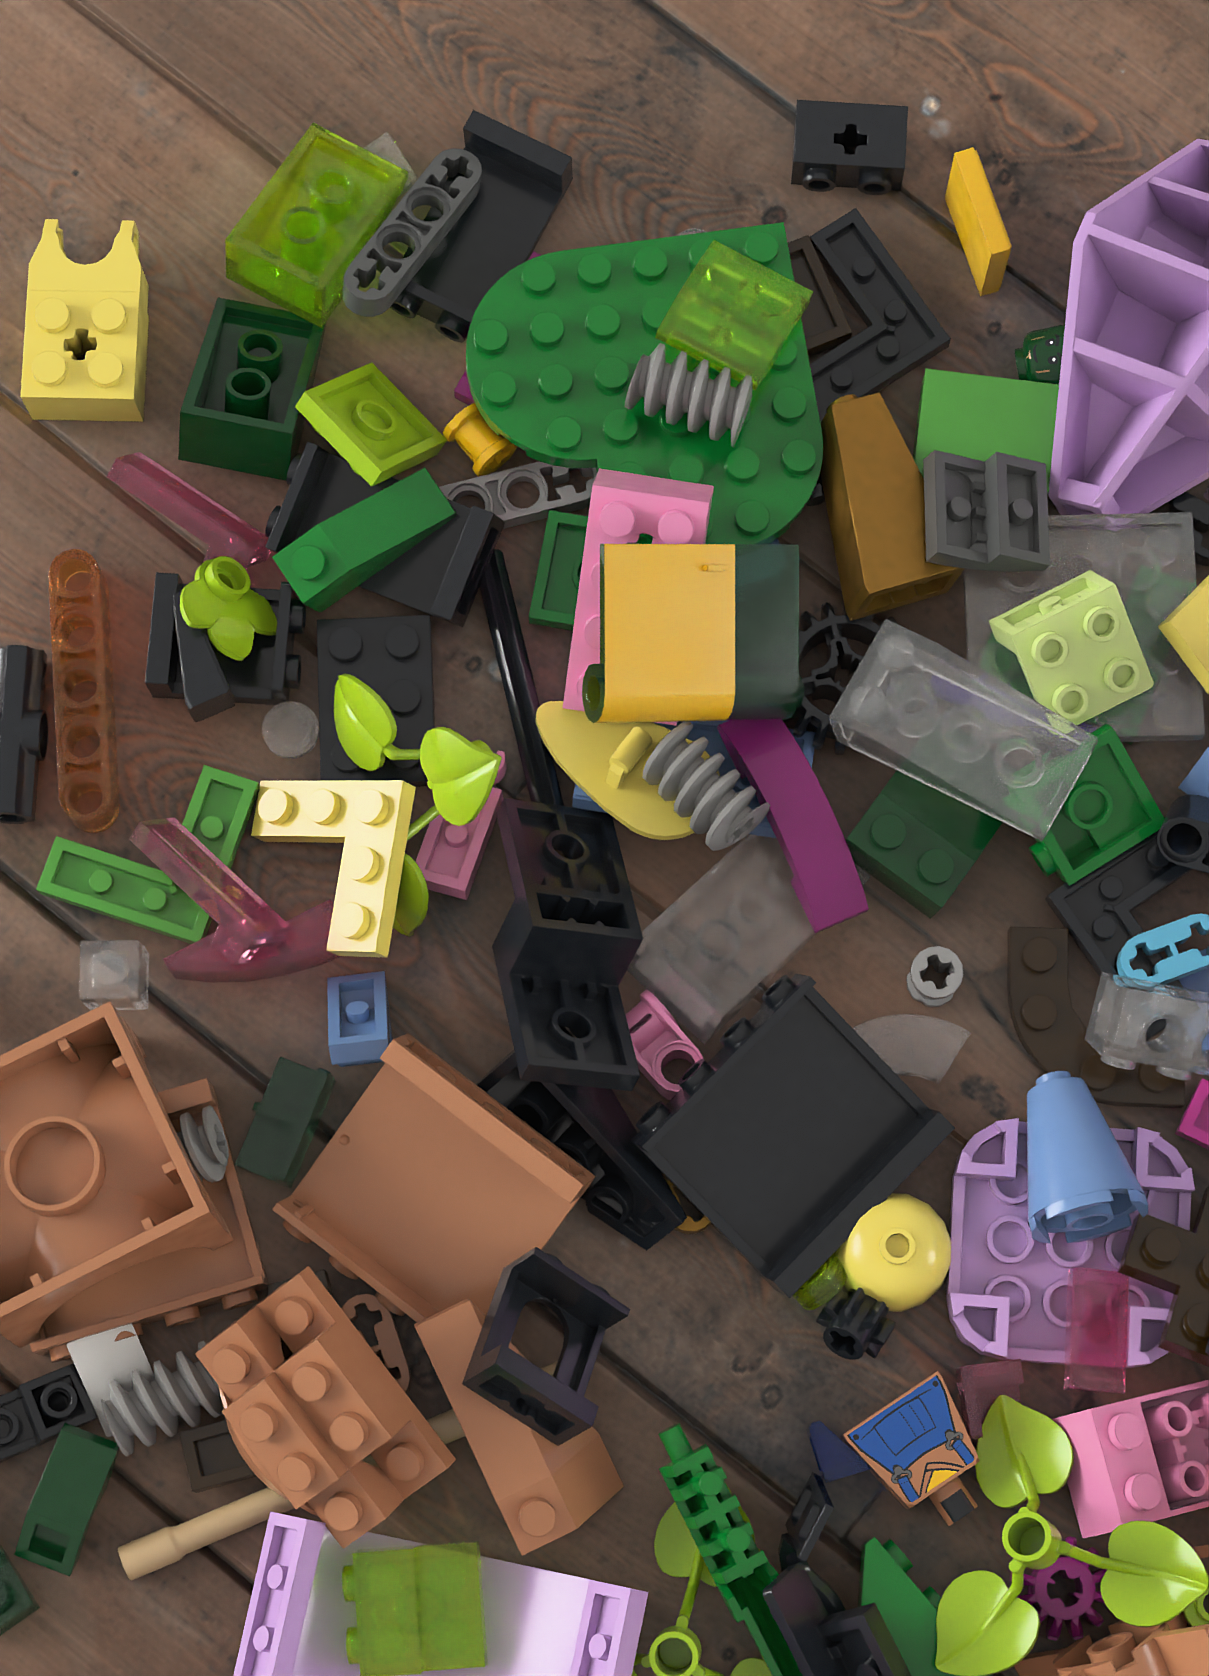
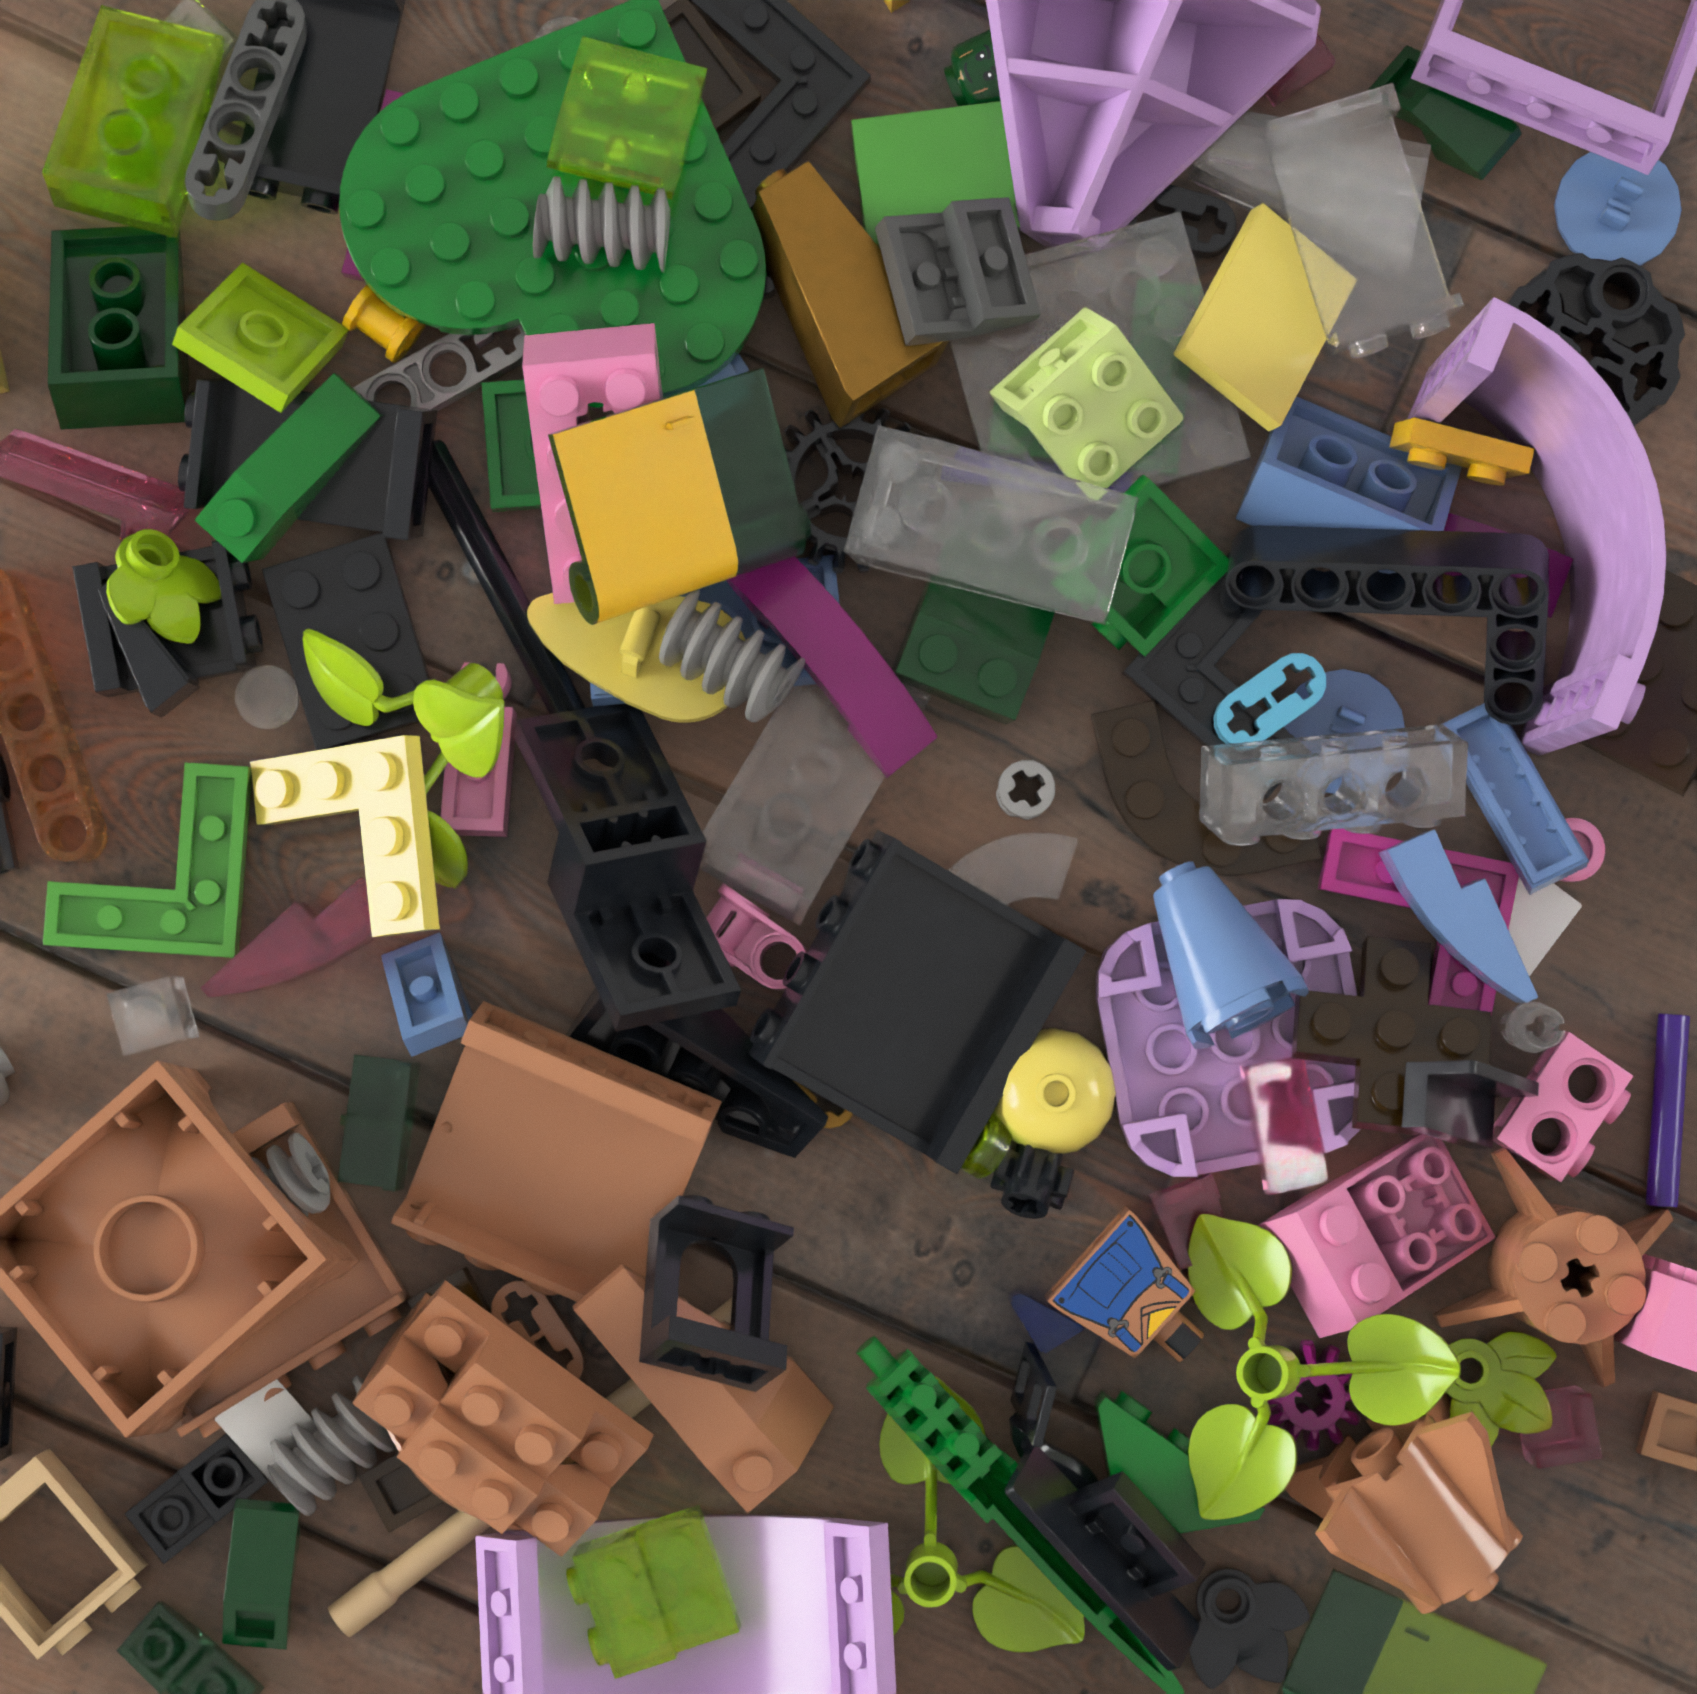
camera: 15 degrees left, 10 degrees up
(242, 915) = (266, 919): clear pink hinge -> none

